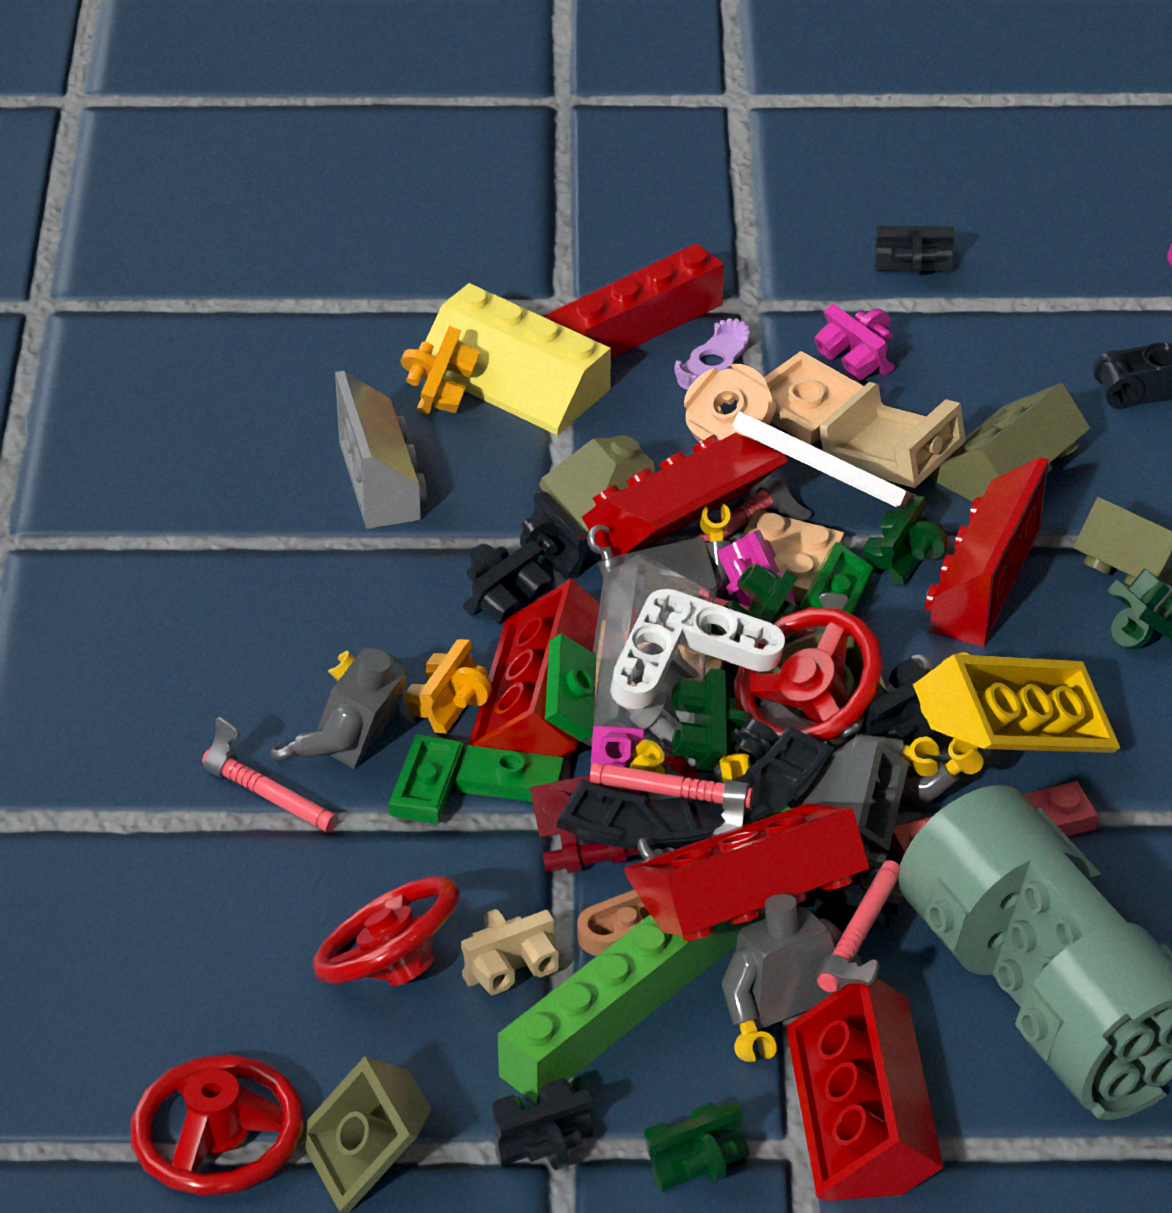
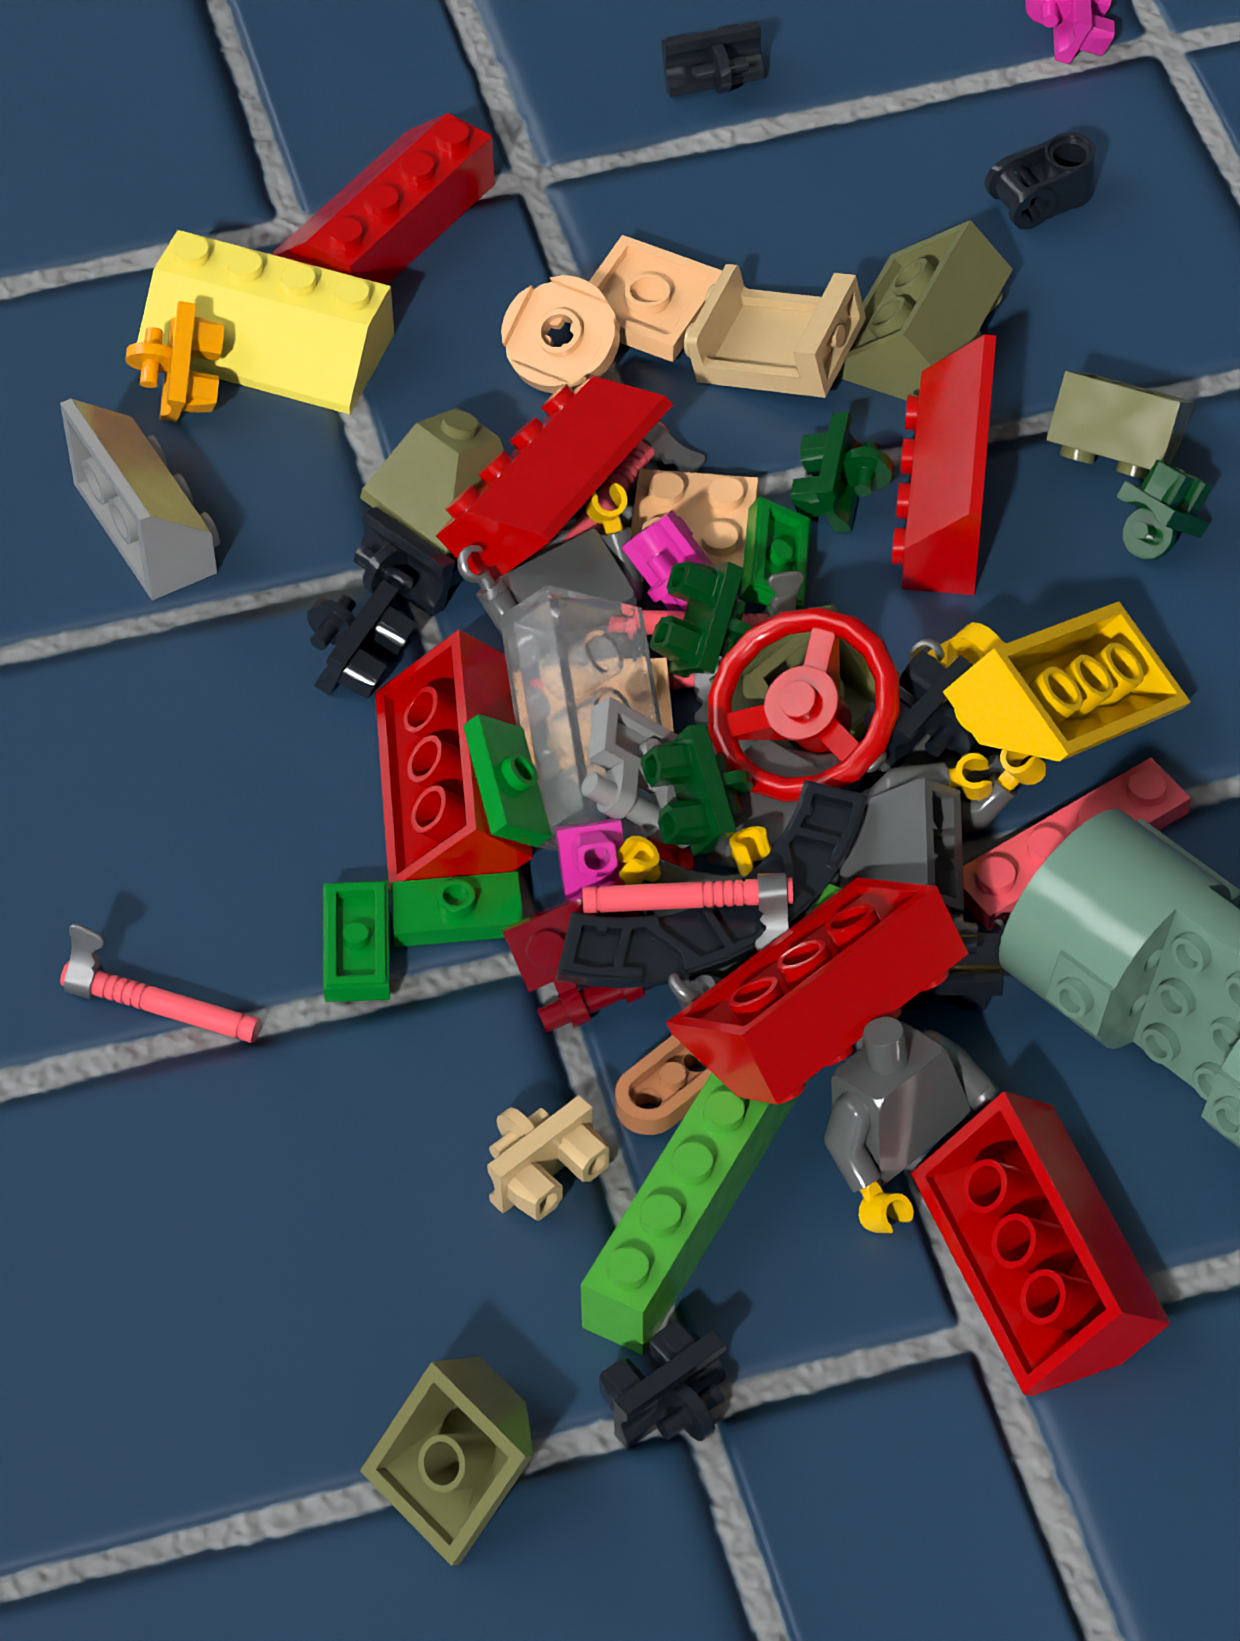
camera: 15 degrees left, 10 degrees up
(218, 1121) = (259, 1485): red piece -> none
(356, 711) = (241, 869): dark grey torso -> none
(388, 938) = (395, 1185): red piece -> none
(451, 686) = (349, 802): light orange hips -> none
(684, 629) = (639, 679): white beam -> none
(696, 1146) = (866, 1370): dark green hips -> none
(728, 342) = (521, 238): lavender piece -> none
(754, 739) = (766, 806): black plate -> none
(822, 460) = (713, 391): white tile -> none
(837, 968) = (964, 1096): coral piece -> none
(863, 335) = (689, 196): dark pink hips -> none

